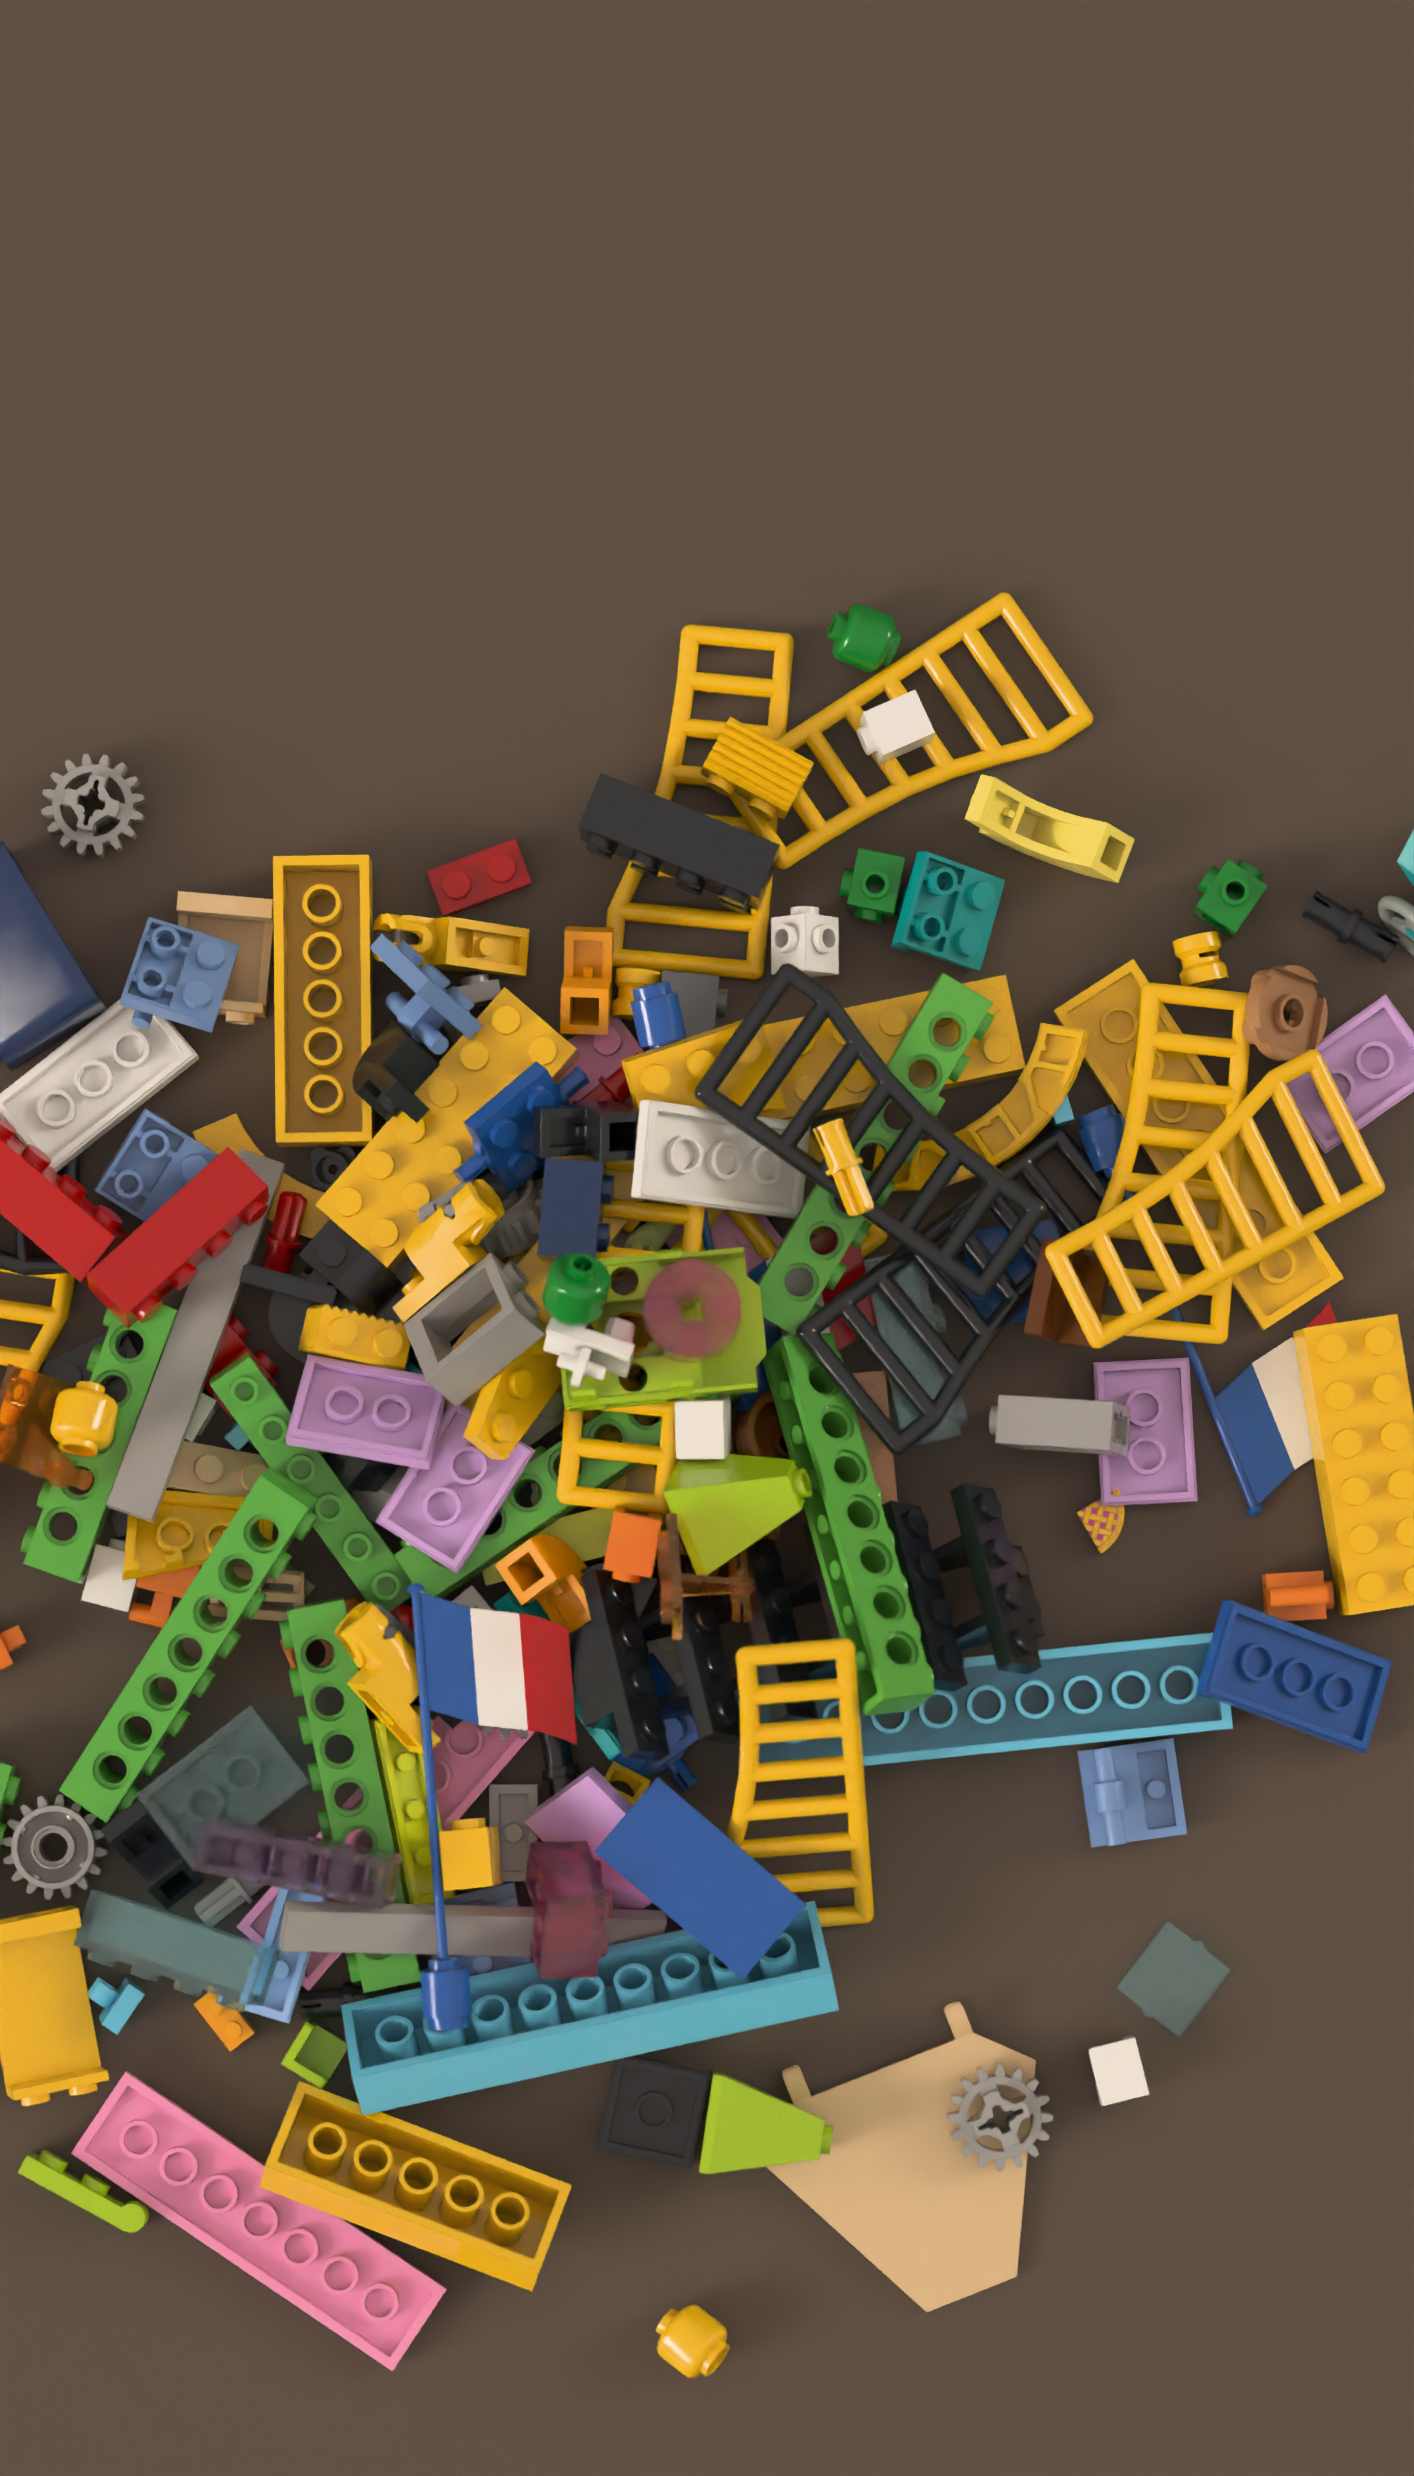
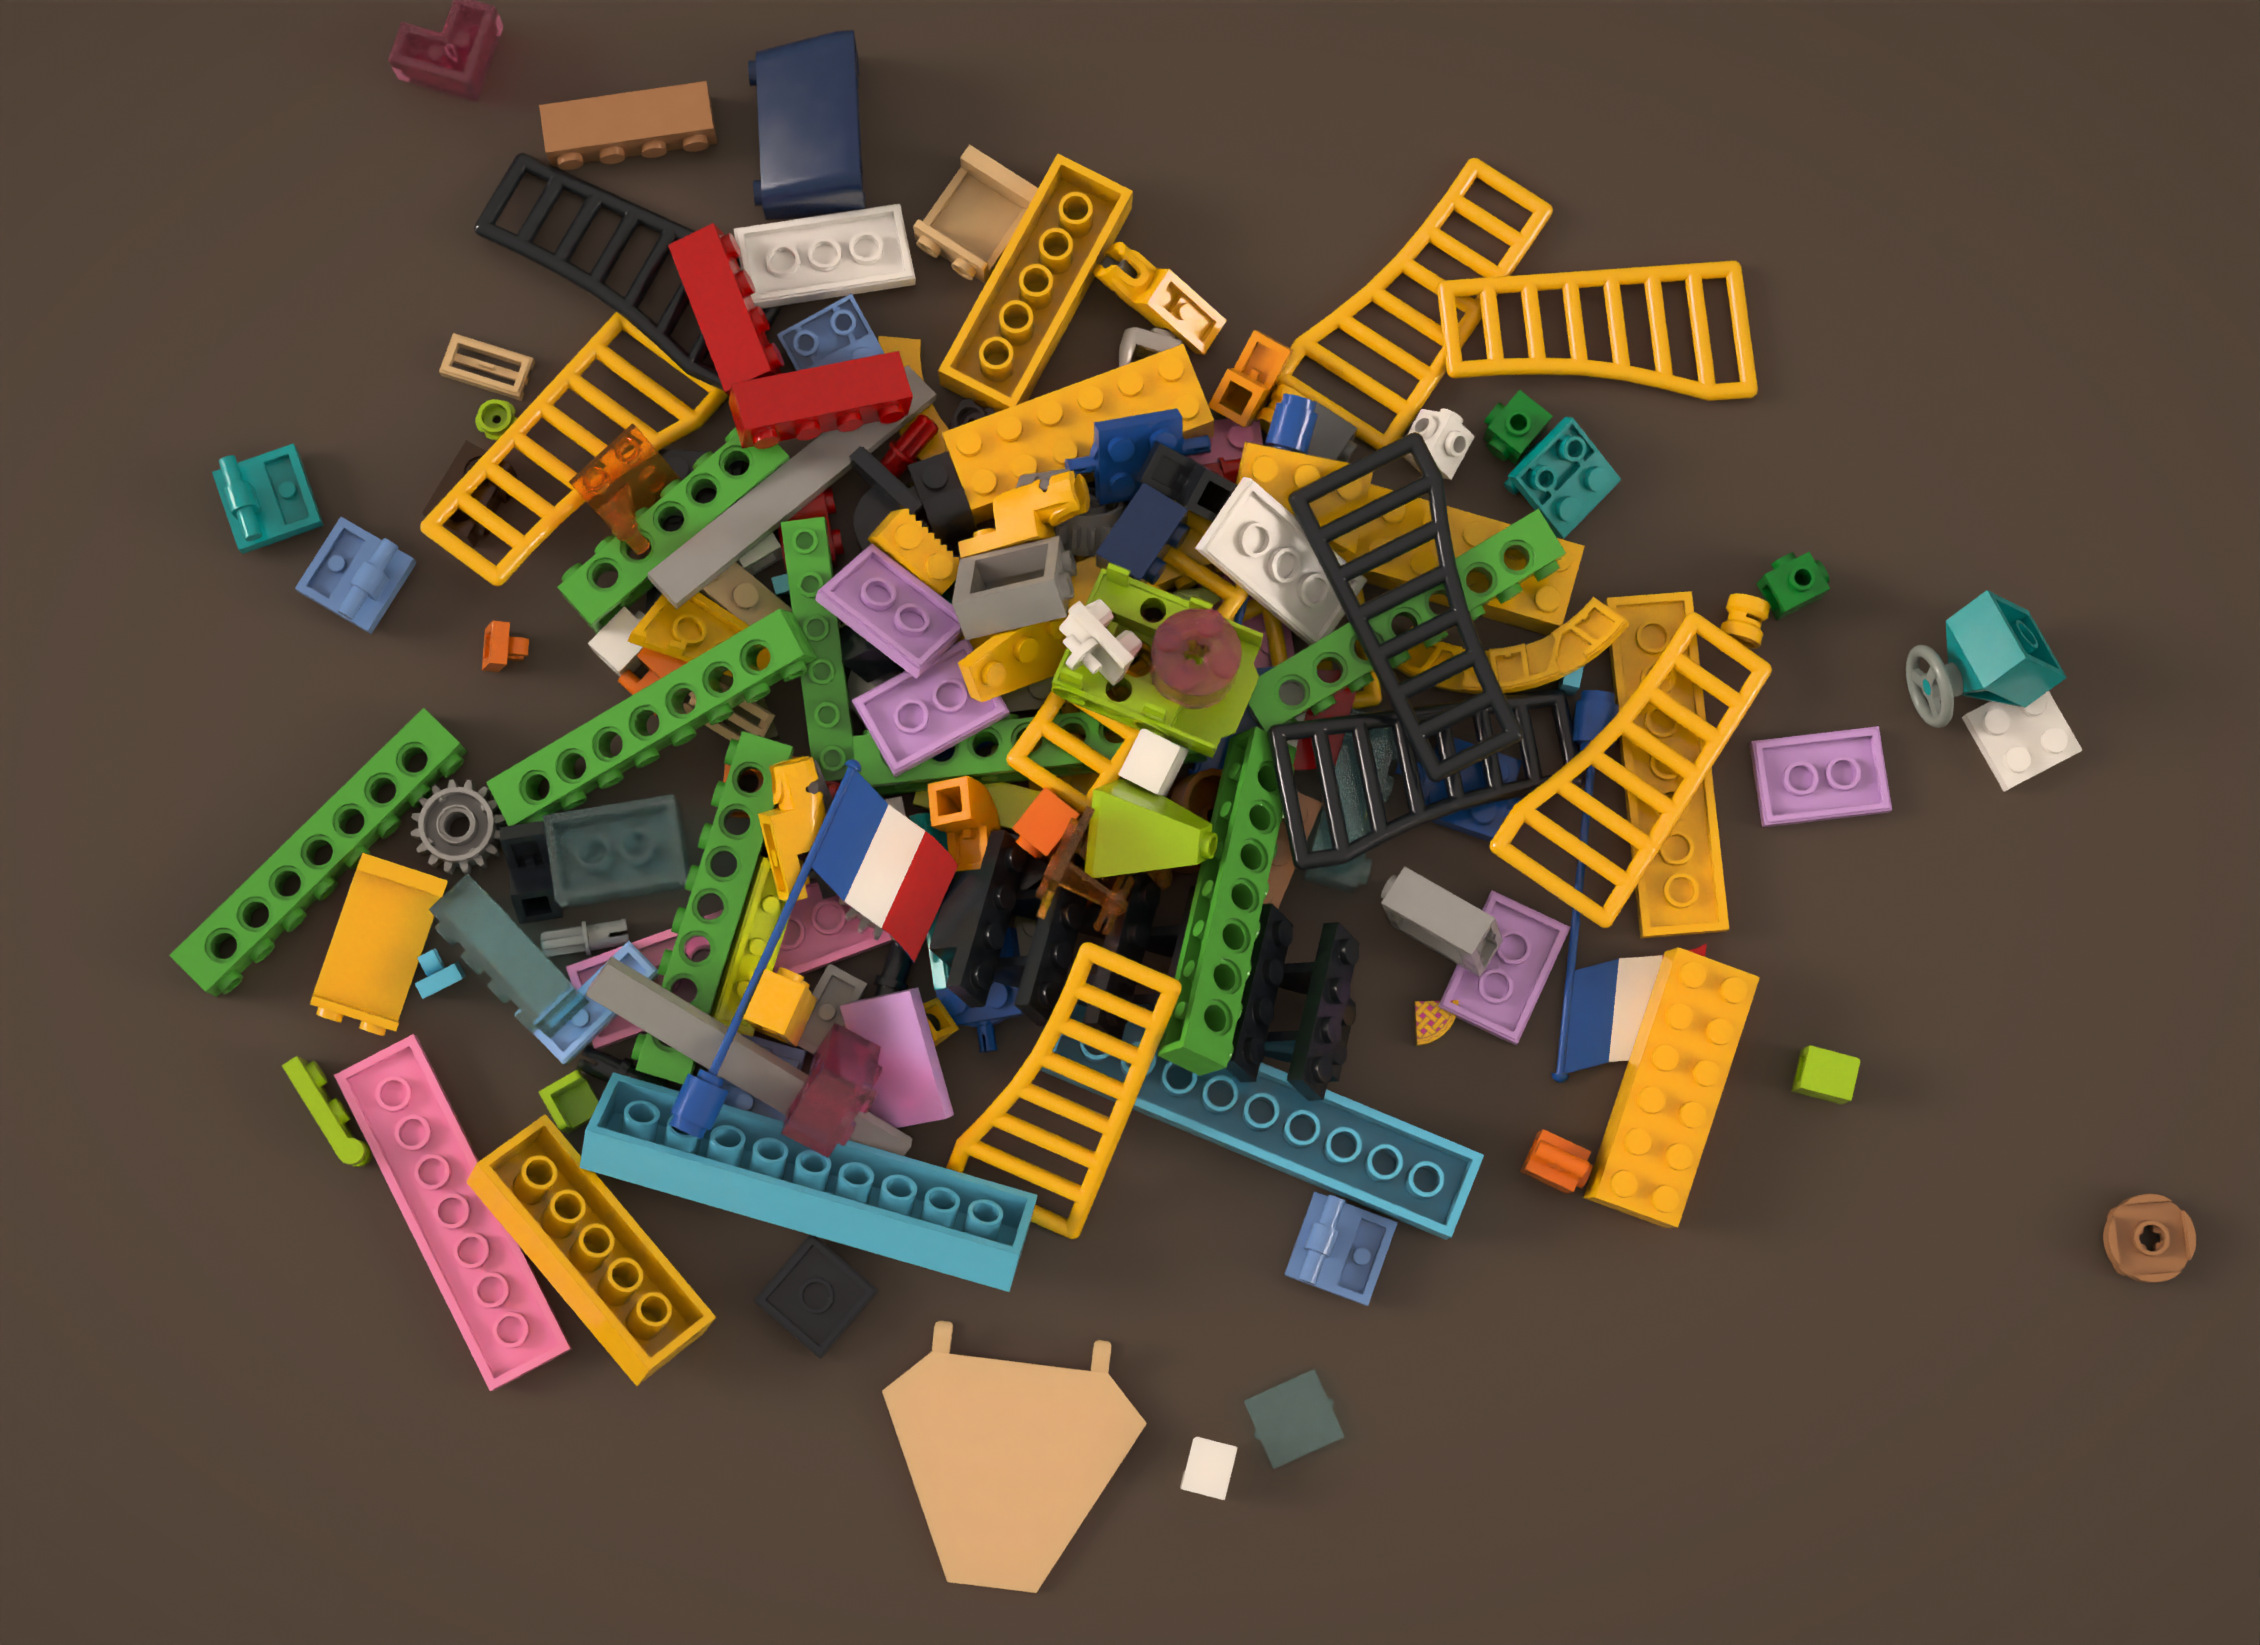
camera: 20 degrees right, 5 degrees down
(73, 801) = (940, 69): light grey gear -> none
(84, 1419) = (667, 497): yellow head -> none
(178, 976) = (933, 207): medium blue plate -> none
(227, 2023) = (516, 1038): light orange piece -> none
(297, 1862) = (638, 932): brick -> none
(392, 1073) = (1059, 363): black brick -> none
(431, 1003) = (1125, 323): medium blue plate -> none
(479, 878) = (1210, 263): red plate -> none
(578, 1291) = (1111, 587): green head -> none
(679, 843) = (1380, 308): black brick -> none
(692, 2341) = (744, 1500): yellow head -> none
(700, 1878) = (954, 1122): blue tile -> none
(756, 769) = (1471, 285): yellow brick -> none
(757, 2129) = (889, 1353): lime slope -> none
(844, 1167) = (1378, 613): yellow axle -> none
(863, 637) = (1609, 236): green head -> none
(895, 727) = (1598, 312): white brick -> none
(1021, 2108) = (1121, 1456): light grey gear -> none
(1048, 833) = (1672, 459): light yellow arch -> none
(1049, 1311) = (1502, 818): reddish brown panel -> none
(1209, 1155) = (1633, 776): yellow bar -> none
(1265, 1021) = (1773, 694): medium nougat plate -> none
(1294, 1676) = (1522, 1224): blue tile -> none
(1350, 926) = (1878, 659): black pin -> none

